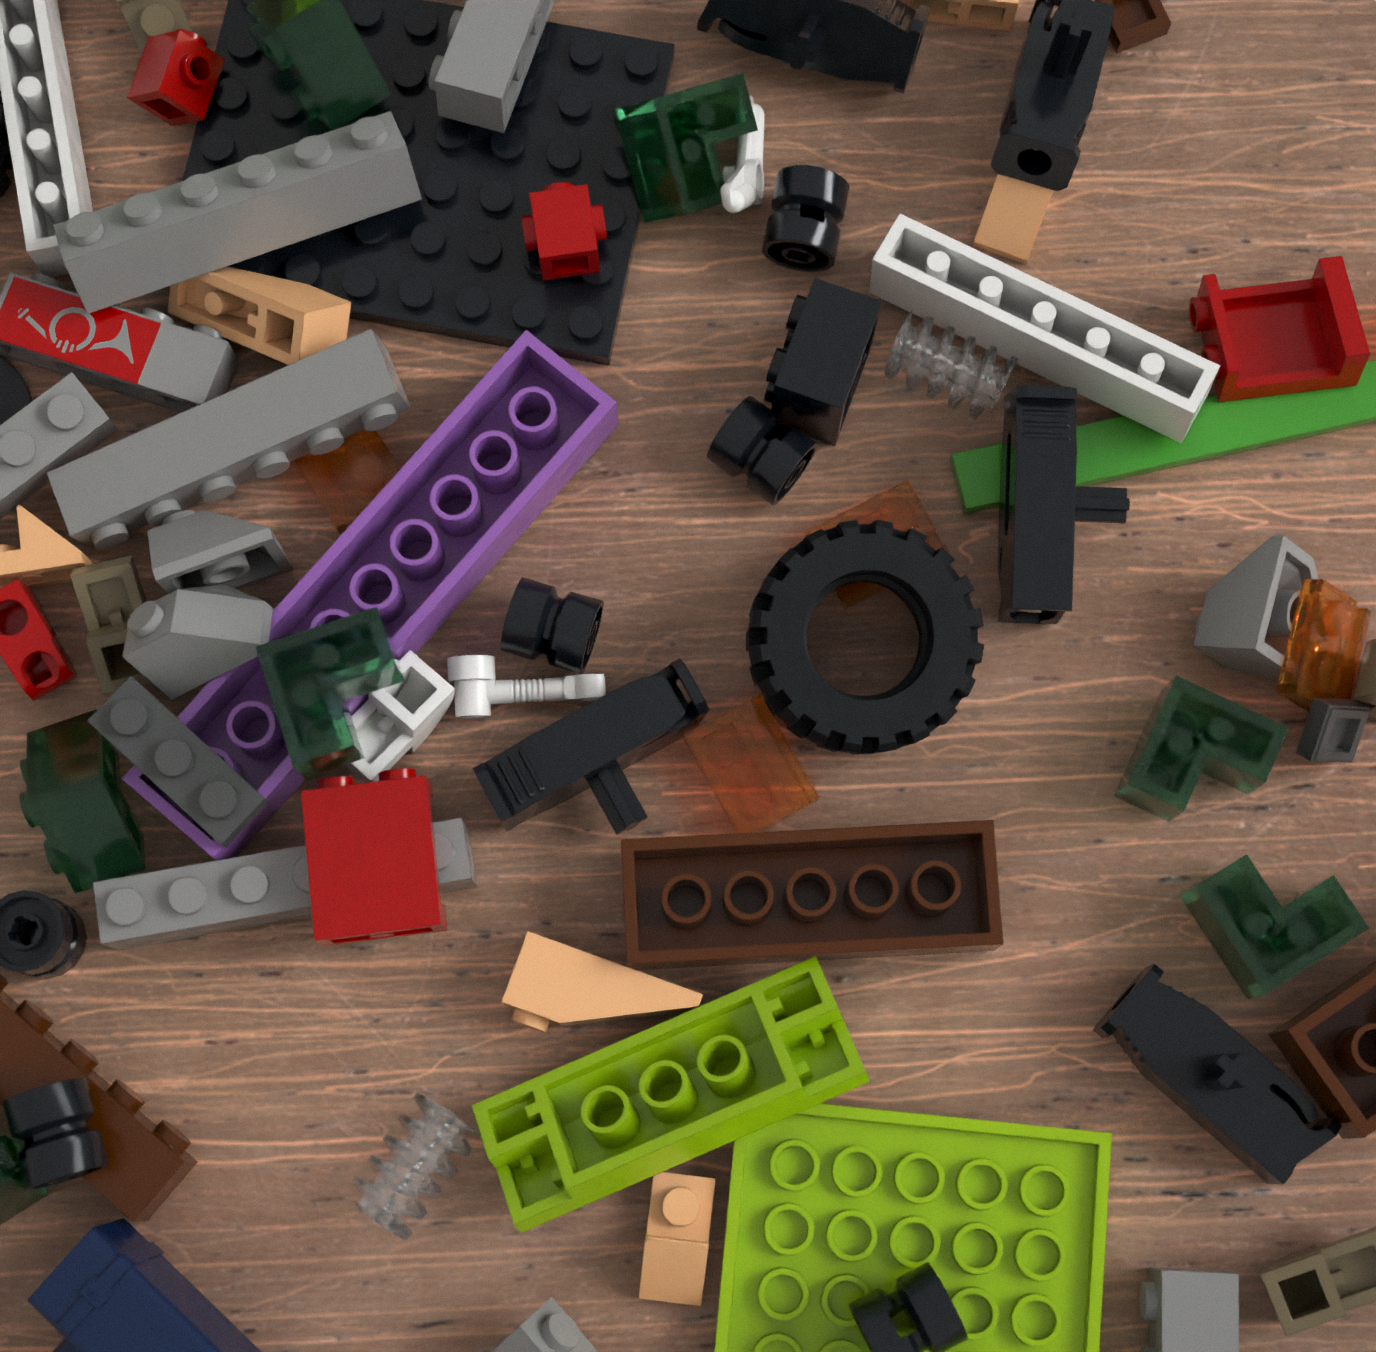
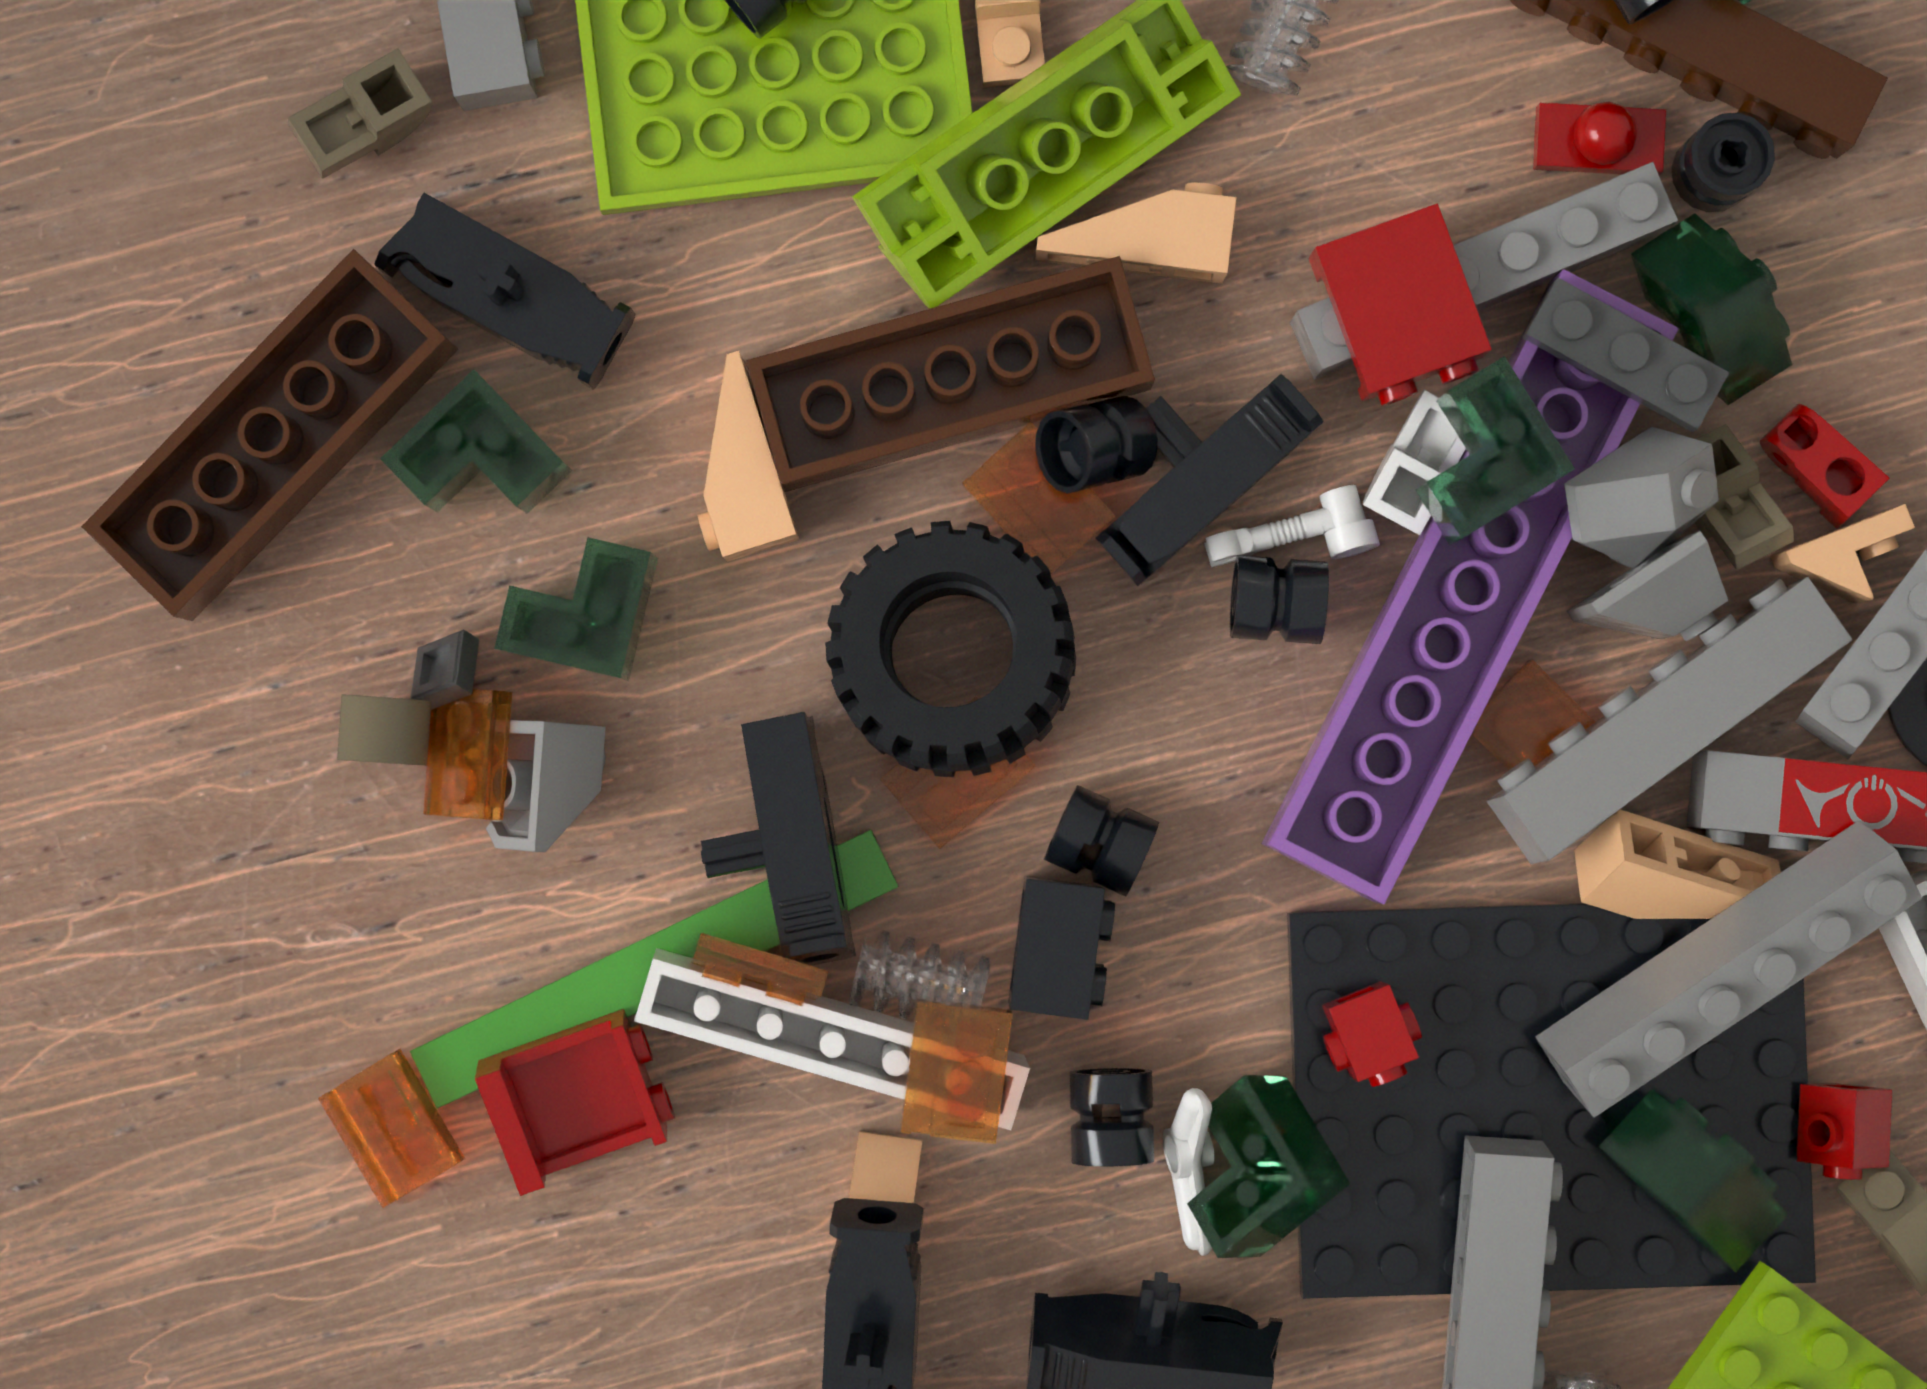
camera: 170 degrees right, 10 degrees up
(143, 990) = (1598, 138): none -> red tile
(688, 796) = (1096, 444): none -> black wheel
(940, 262) = (956, 1071): none -> clear orange plate
(1028, 832) = (742, 484): none -> light nougat slope
(1120, 396) = (785, 978): none -> clear orange plate

